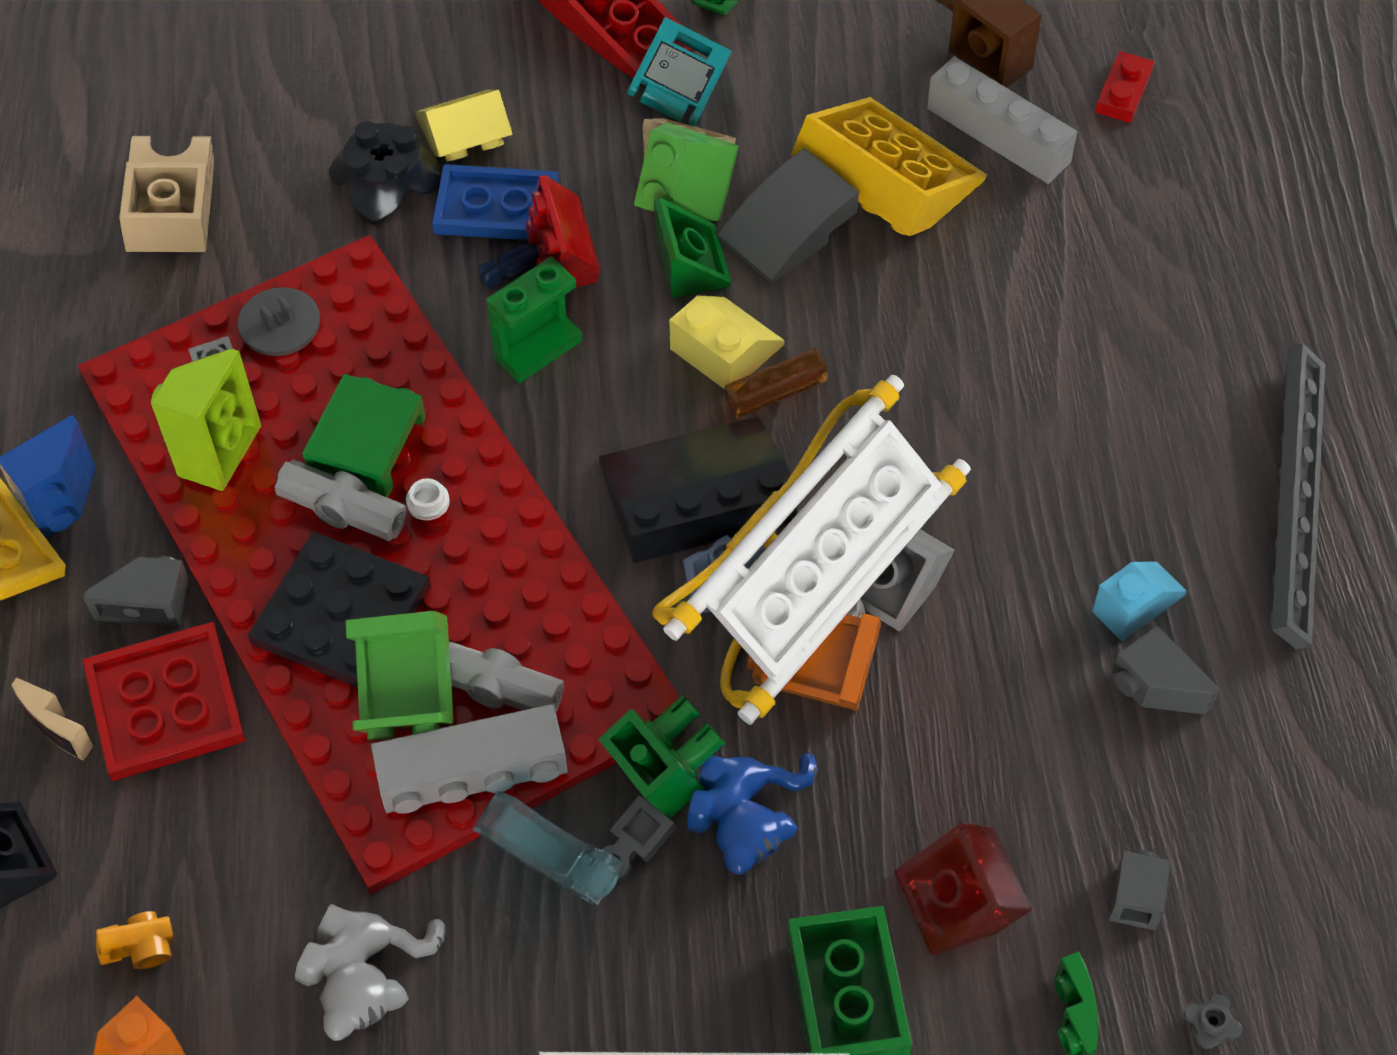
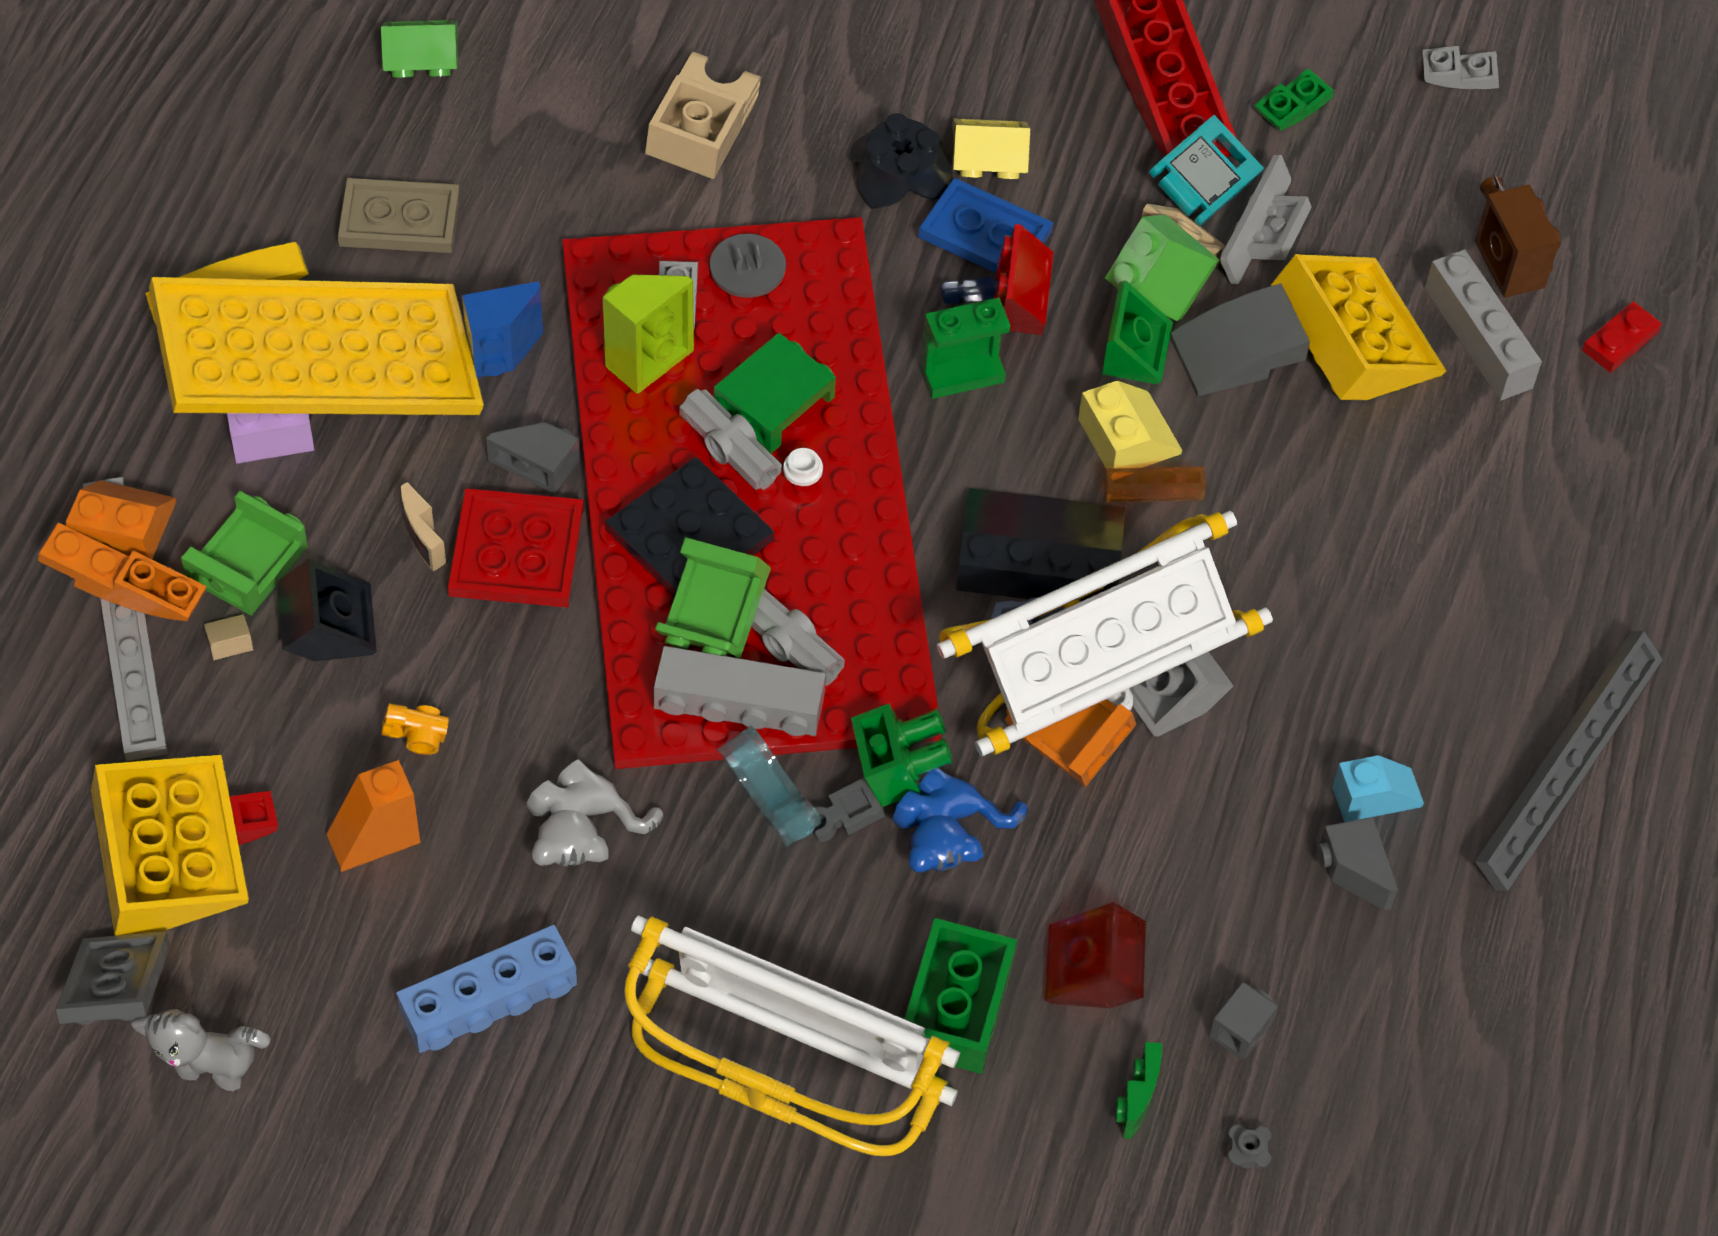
camera: 20 degrees right, 0 degrees up
(760, 100) = (1267, 223): none -> light grey bracket

